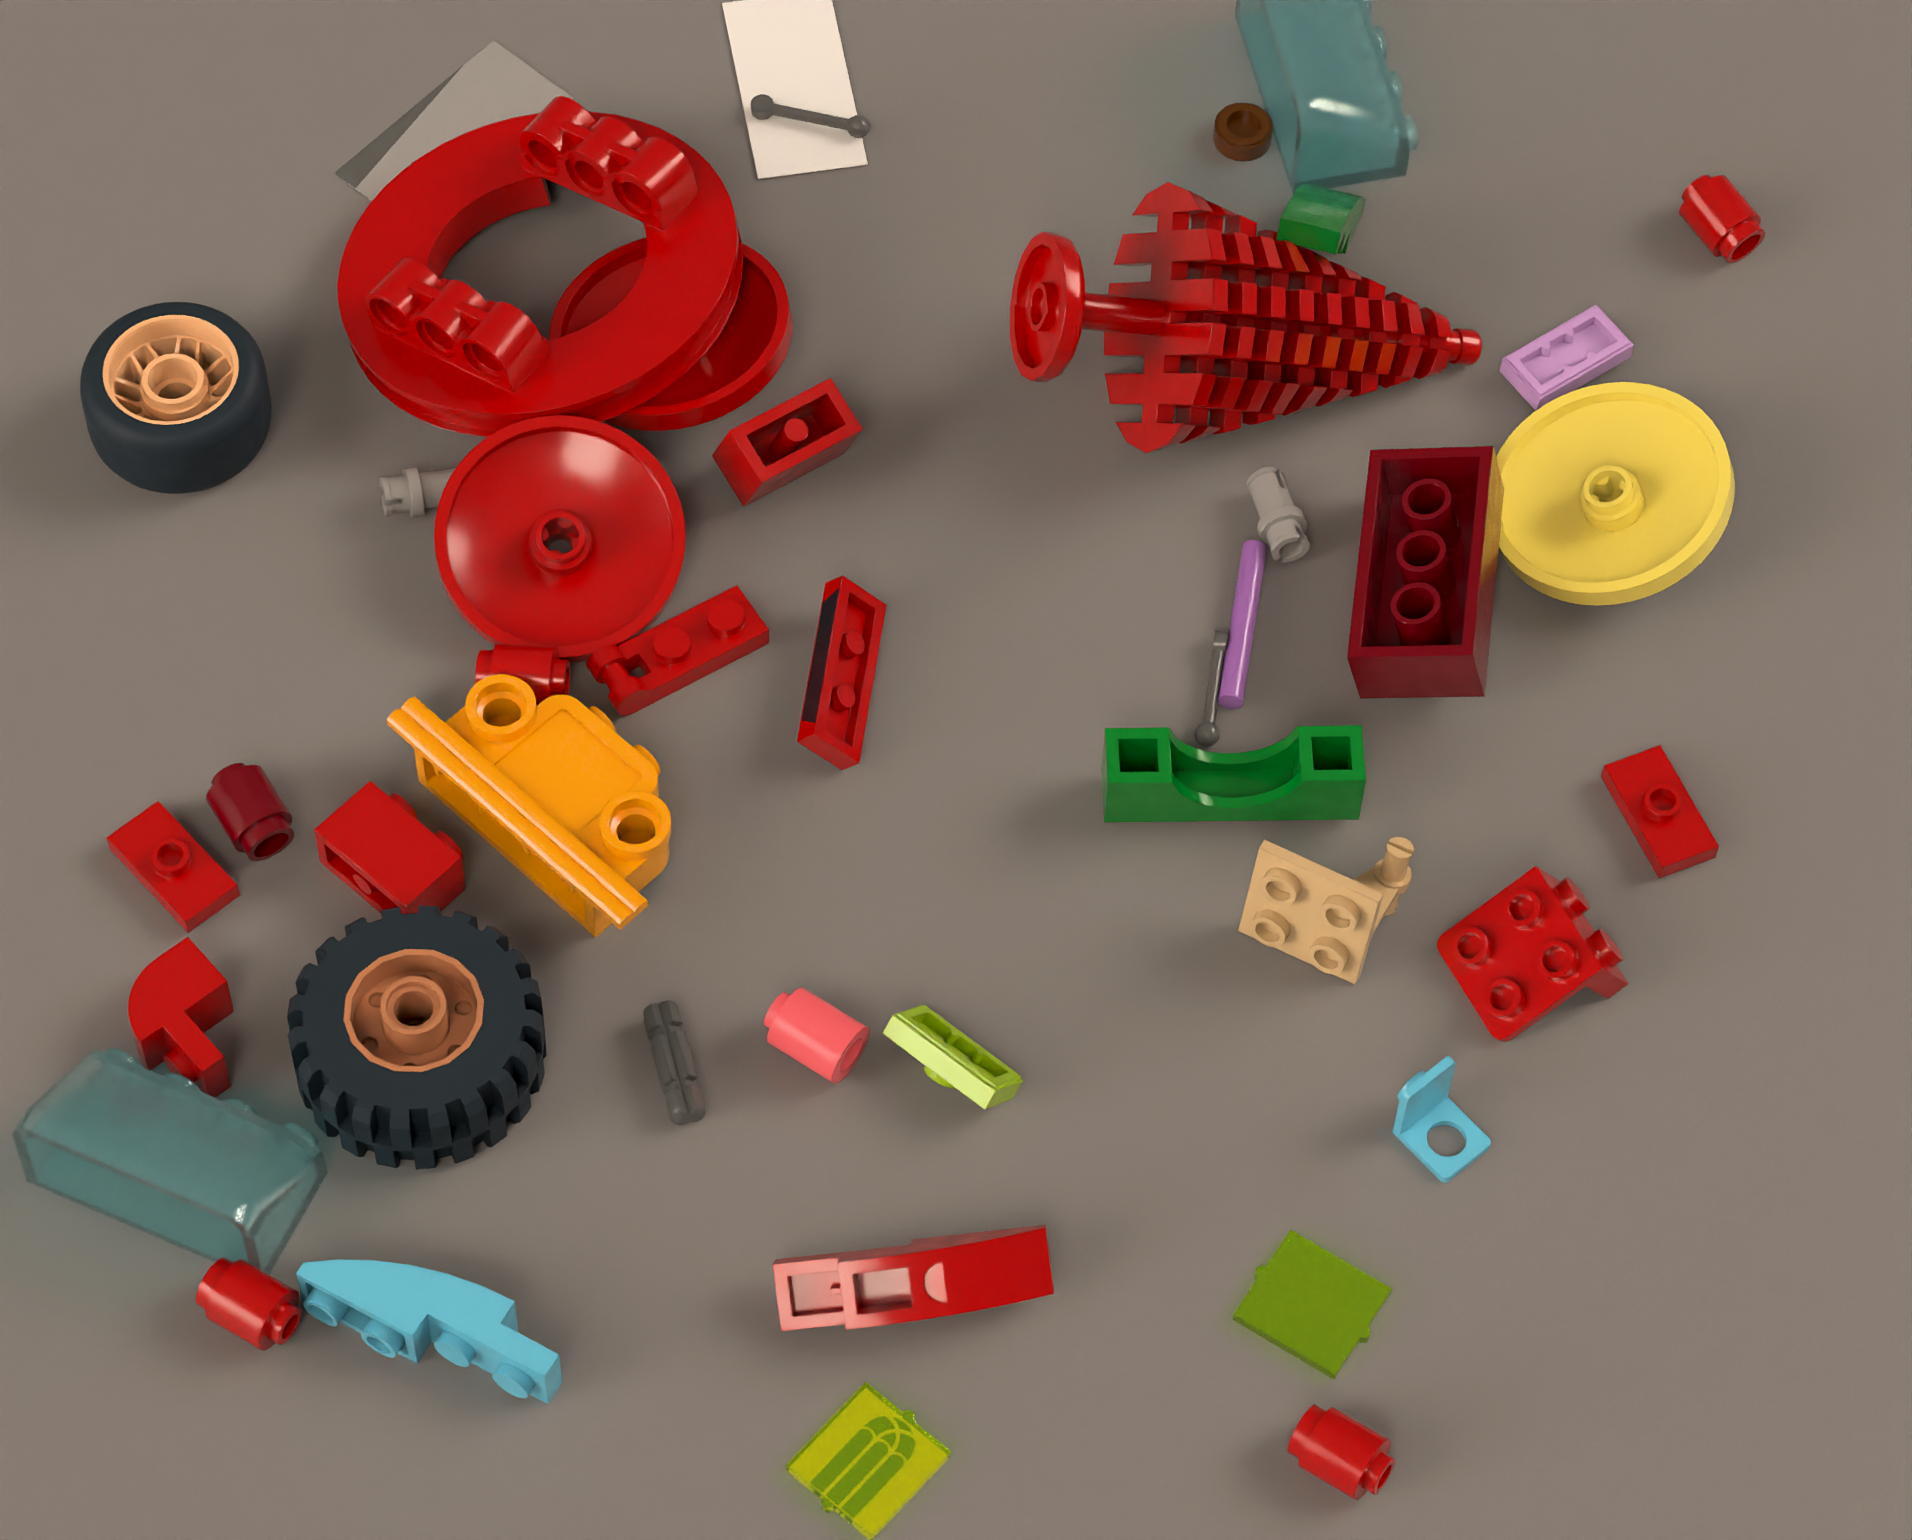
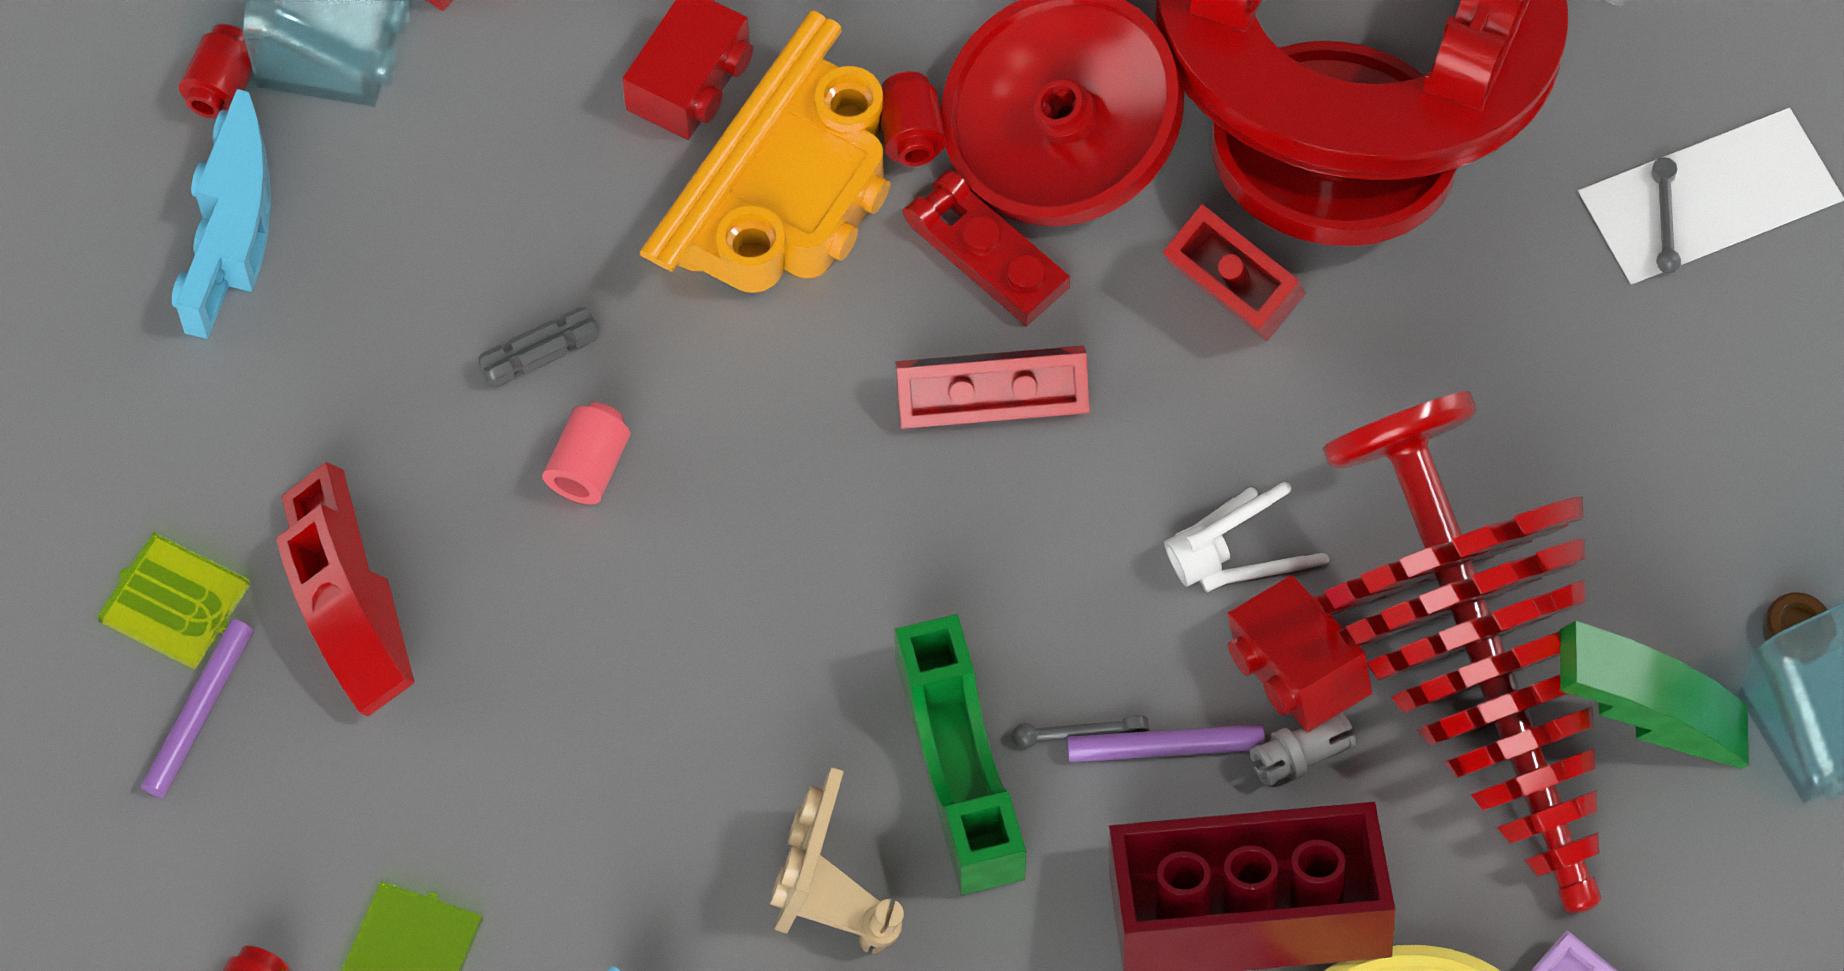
camera: 80 degrees right, 5 degrees up
(417, 1036) = (496, 124): black wheel -> none
(953, 1057) = (591, 574): lime plate -> none
(1001, 1455) = (197, 708): none -> medium lavender bar
(1061, 547) = (1201, 548): none -> white plant
(1195, 485) = (1297, 654): none -> red brick

